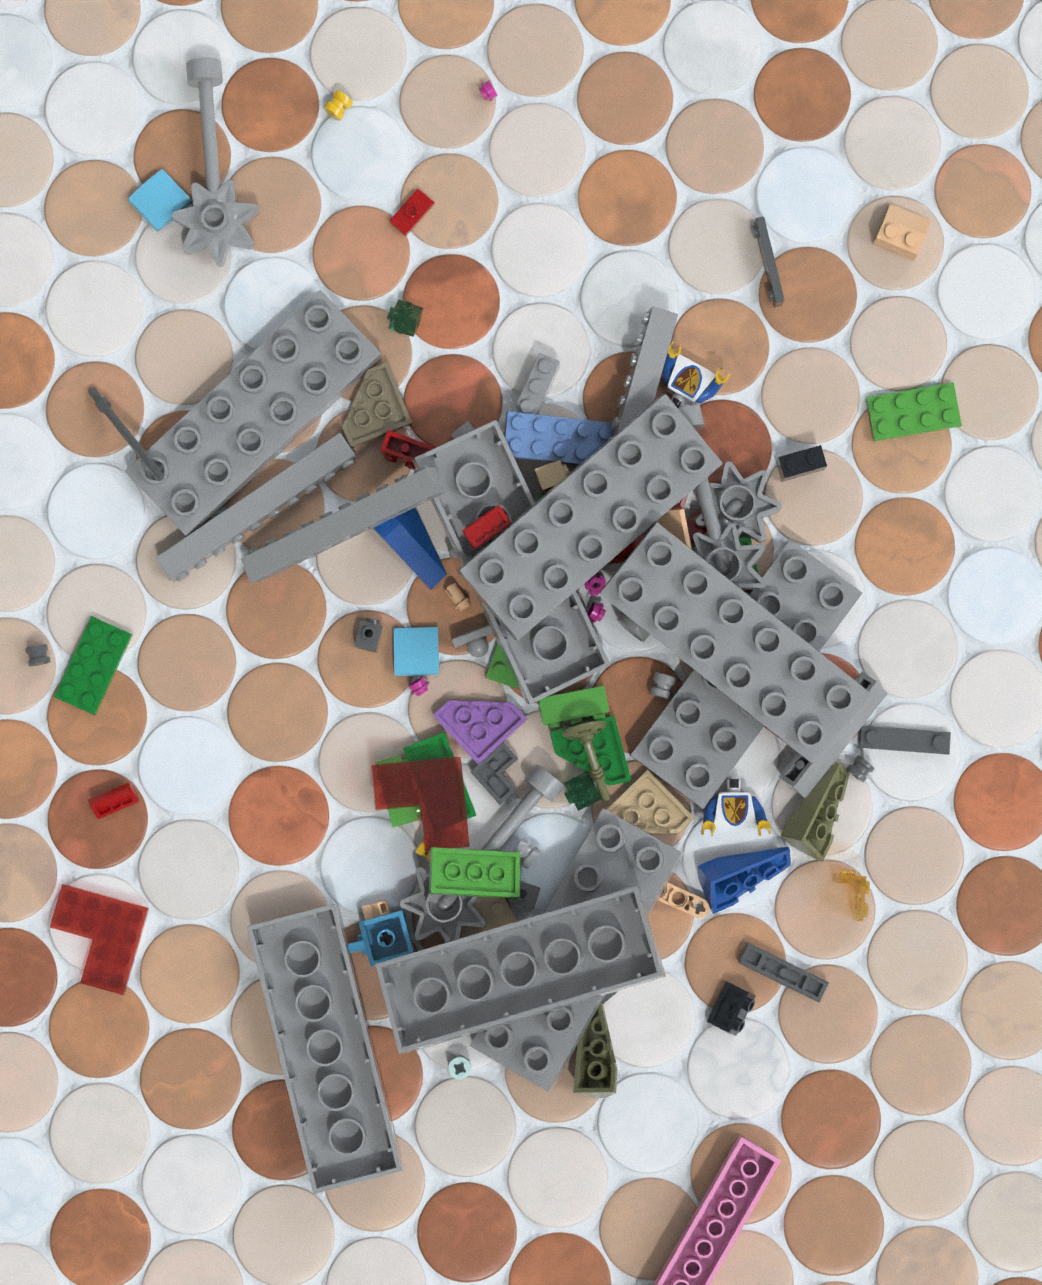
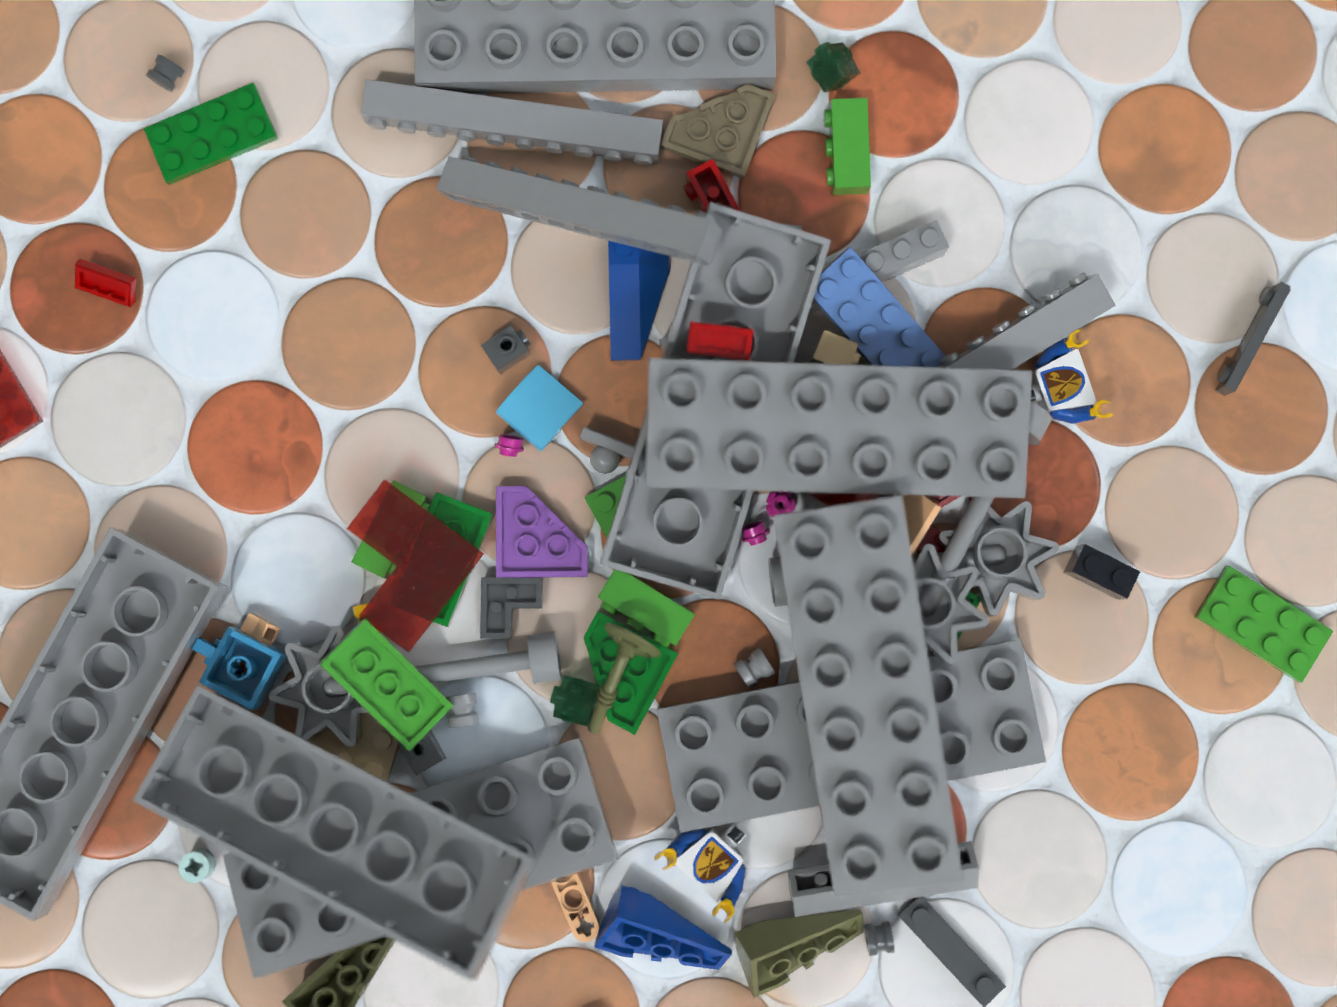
camera: 40 degrees right, 0 degrees up
(453, 354) = (848, 146): none -> bright green brick
(458, 597) = (630, 391): light nougat pin -> none
(651, 807) = (630, 781): tan plate -> none

